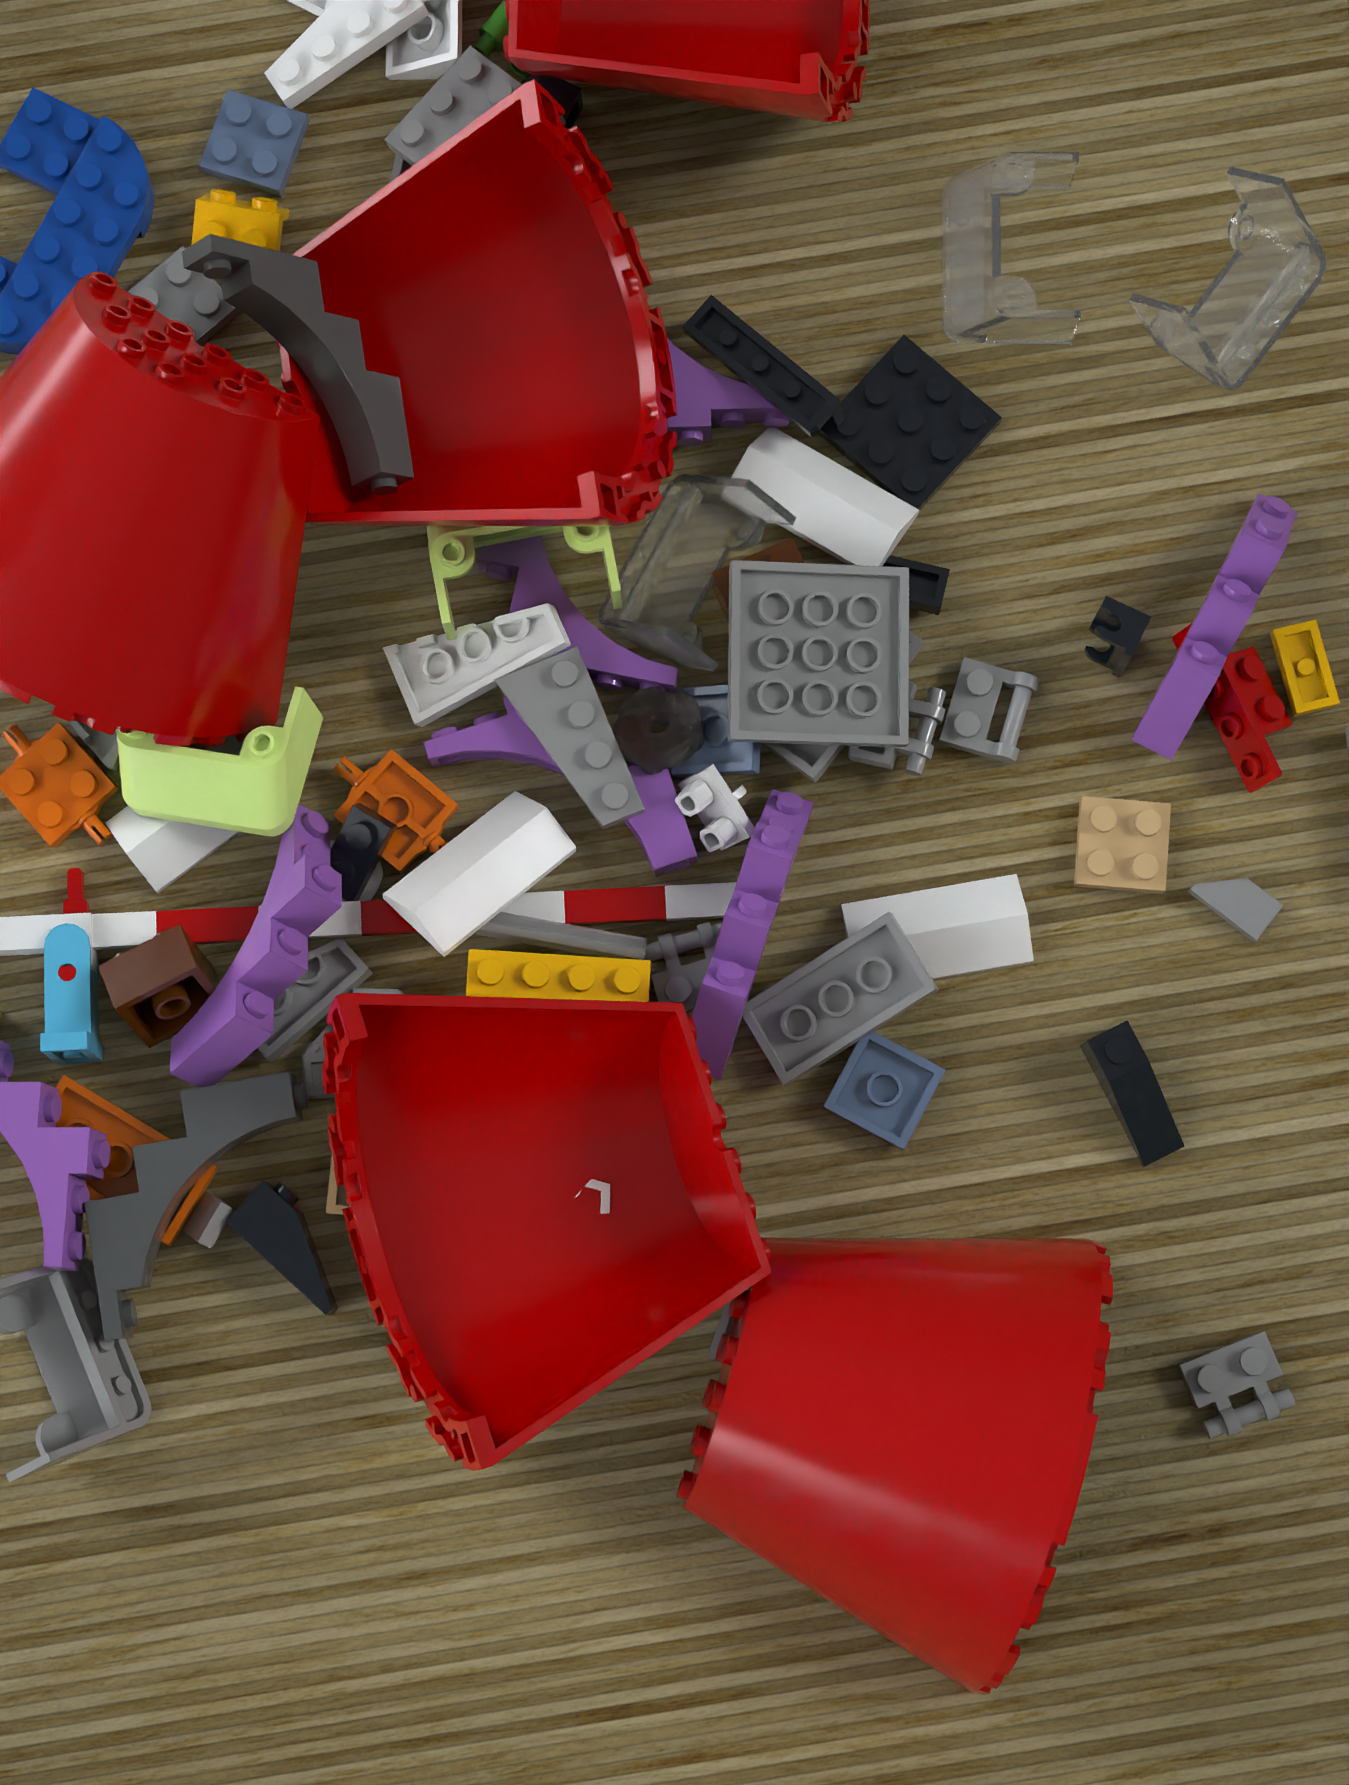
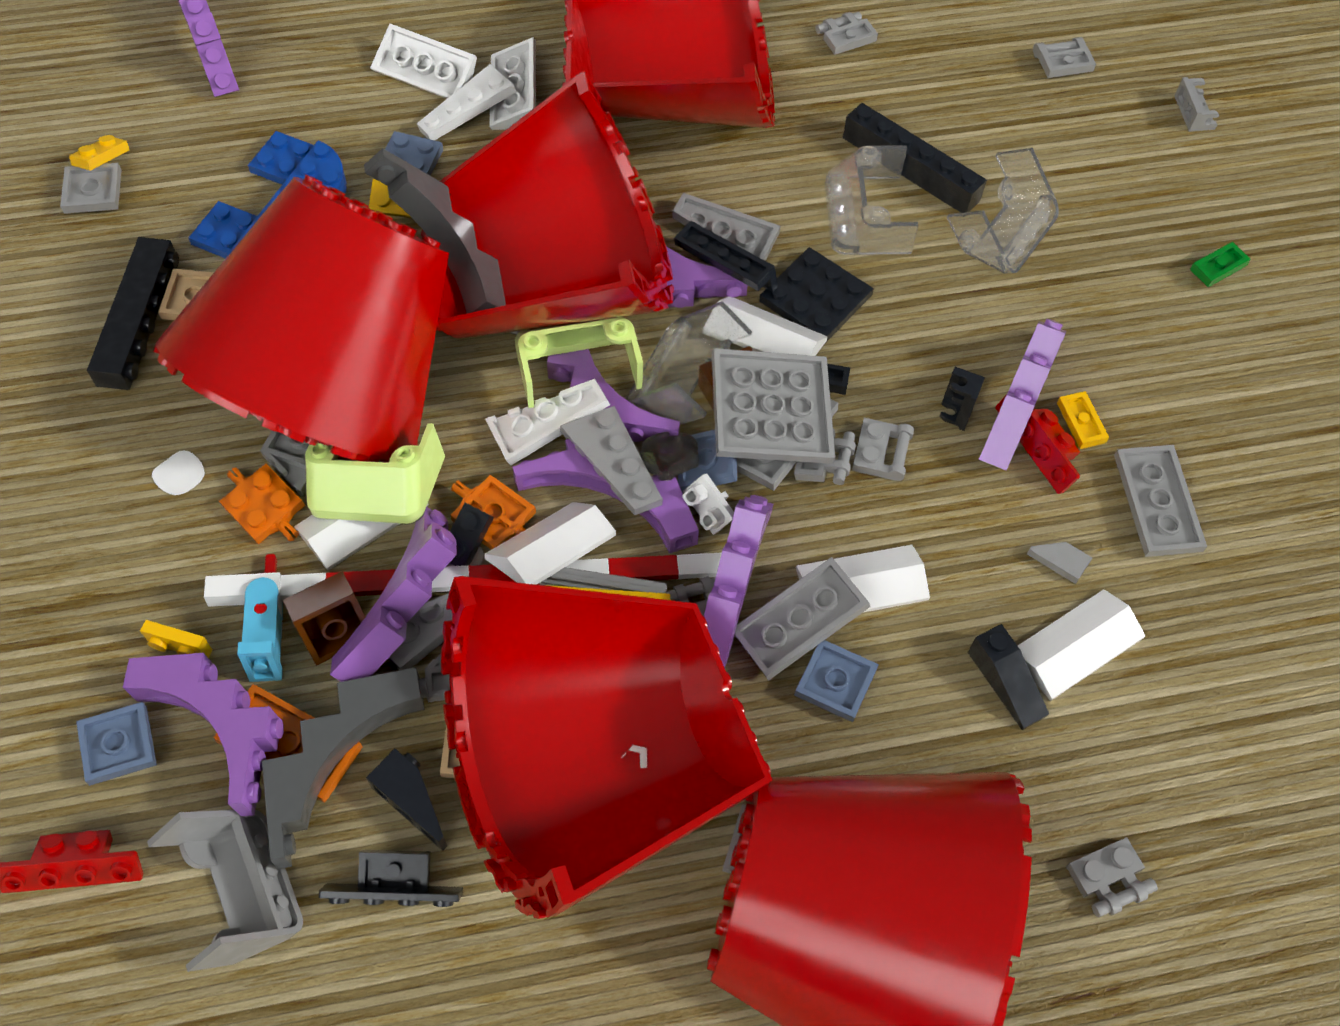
camera: 10 degrees left, 20 degrees down
(207, 1219) = (352, 781): light grey tile -> none
(267, 1358) = (392, 877): none -> black bracket
(777, 297) = (739, 228): none -> light grey wing
(1105, 168) = (923, 163): none -> black brick
(1122, 844) = (980, 525): tan plate -> none
(1243, 1038) = (1080, 643): none -> white slope

